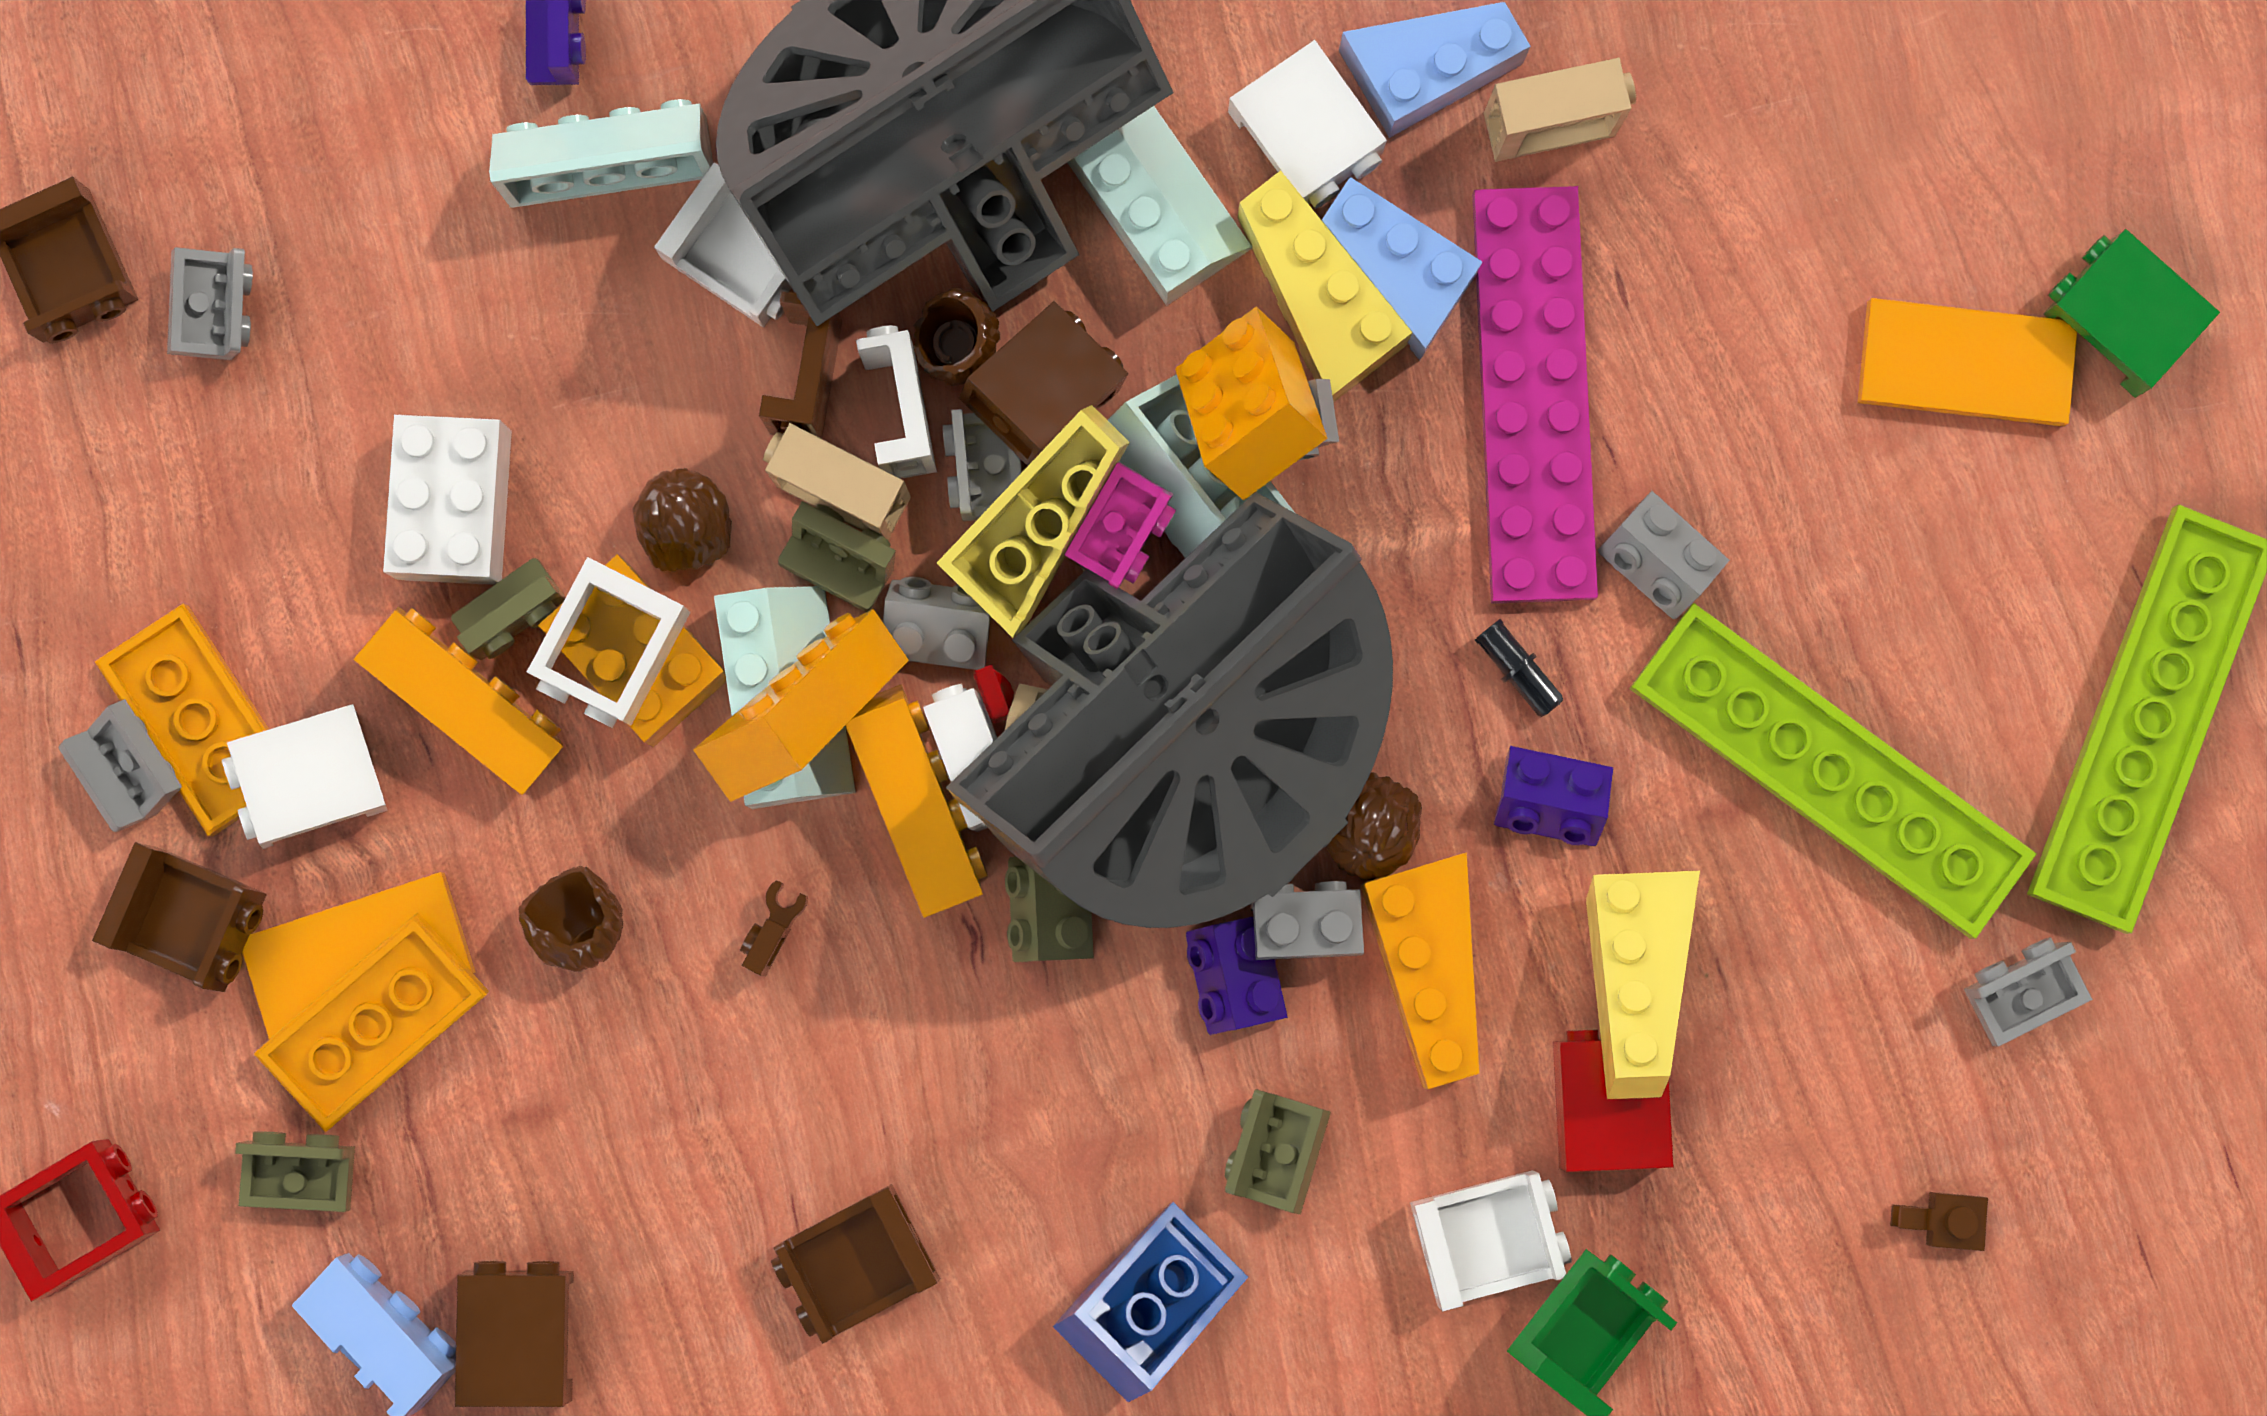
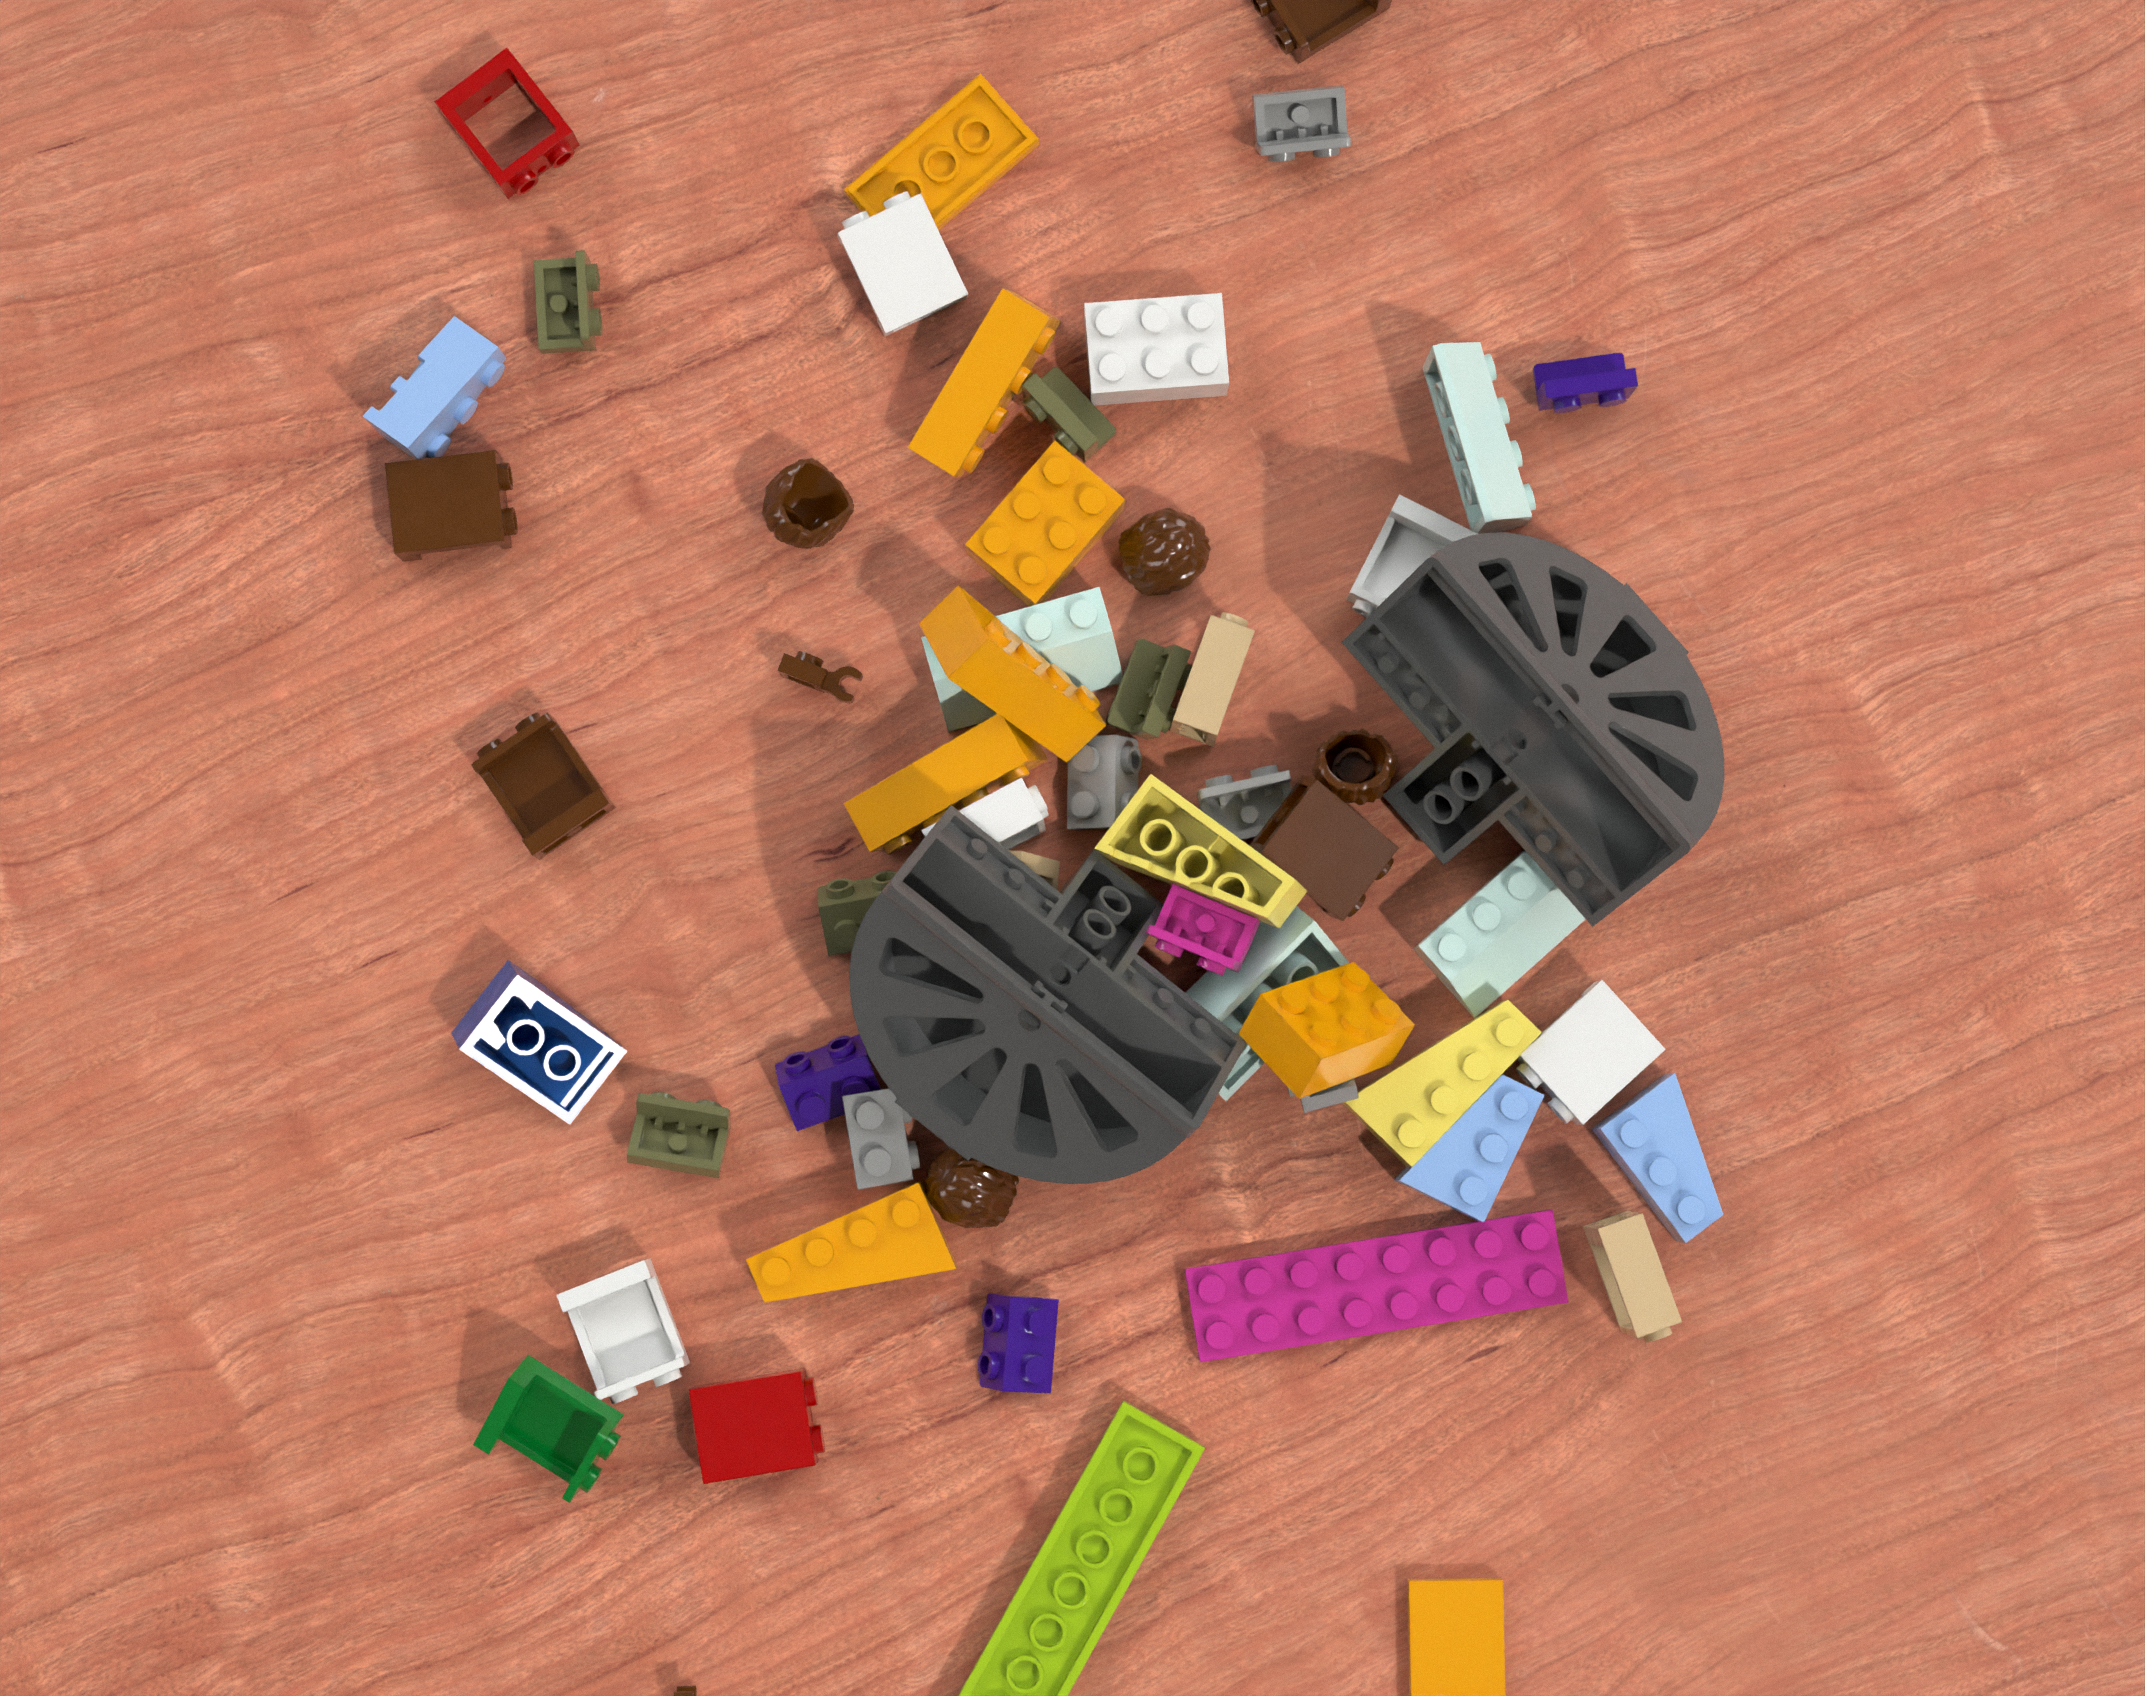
camera: 85 degrees right, 0 degrees up
(121, 767) = (891, 108): light grey bracket -> none
(180, 917) = (771, 177): reddish brown panel -> none
(310, 954) = (757, 329): light orange tile -> none
(371, 1022) = (701, 349): light orange tile -> none
(671, 617) = (1088, 518): white window -> none
(814, 378) = (1298, 647): reddish brown panel -> none
(914, 453) = (1253, 746): white panel -> none
(995, 692) = (1048, 840): red tile -> none
(1519, 668) = (1127, 1300): black axle -> none
(1639, 966) = (877, 1433): light yellow wedge -> none
(1663, 555) = (1245, 1417): light grey bracket -> none

